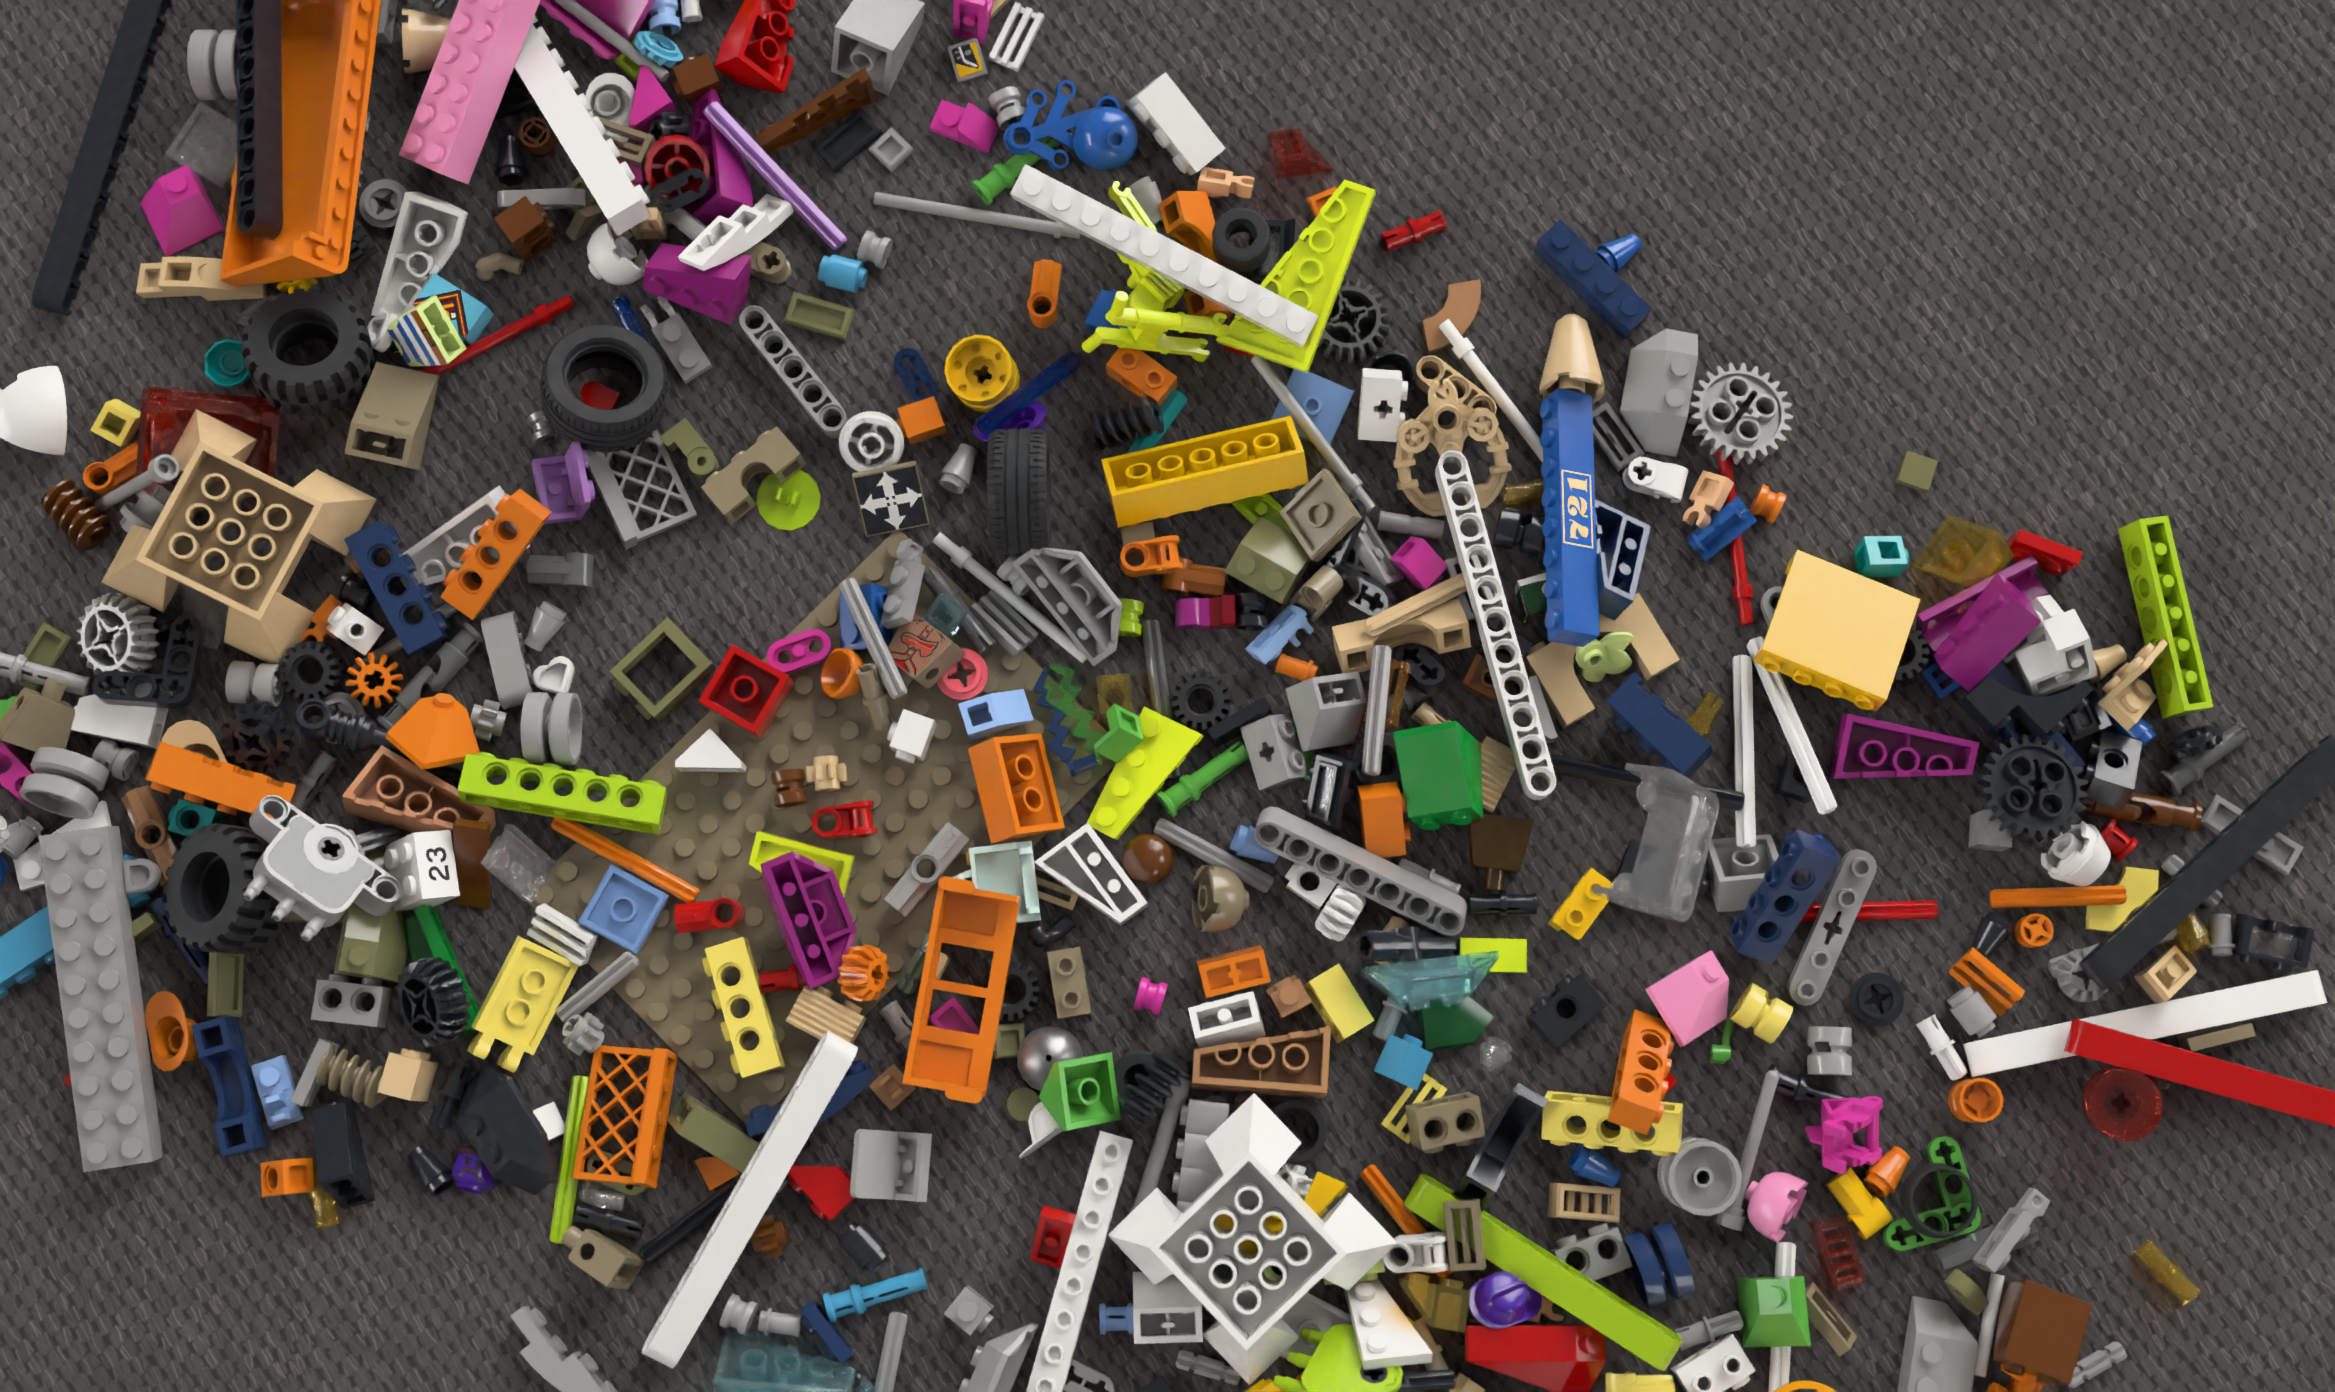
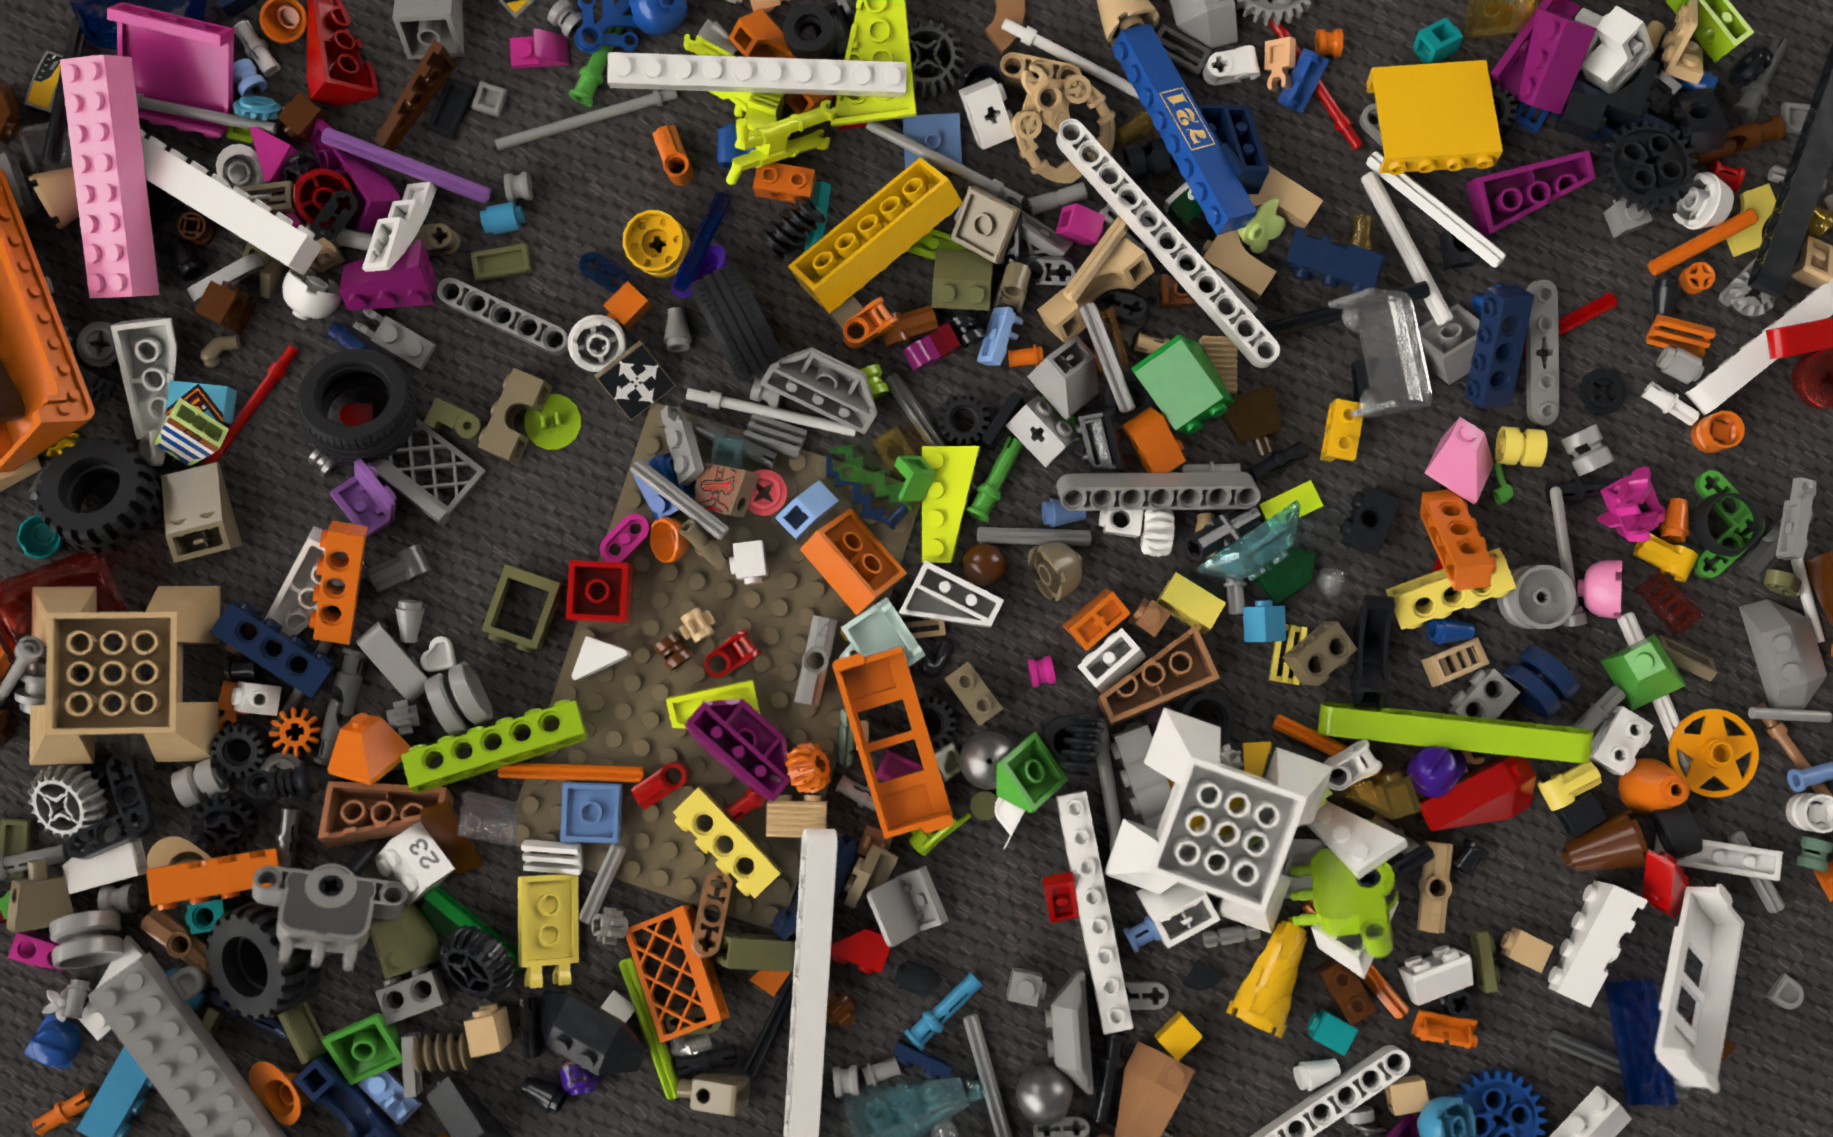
camera: 25 degrees left, 5 degrees up
(277, 1031) = (365, 1048): none -> bright green slope
(667, 1085) = (714, 937): none -> medium nougat beam
(871, 1112) = (870, 873): none -> dark tan bracket
(948, 1110) = (924, 842): none -> lime plant
(1454, 1264) = (1368, 712): dark tan tile -> none

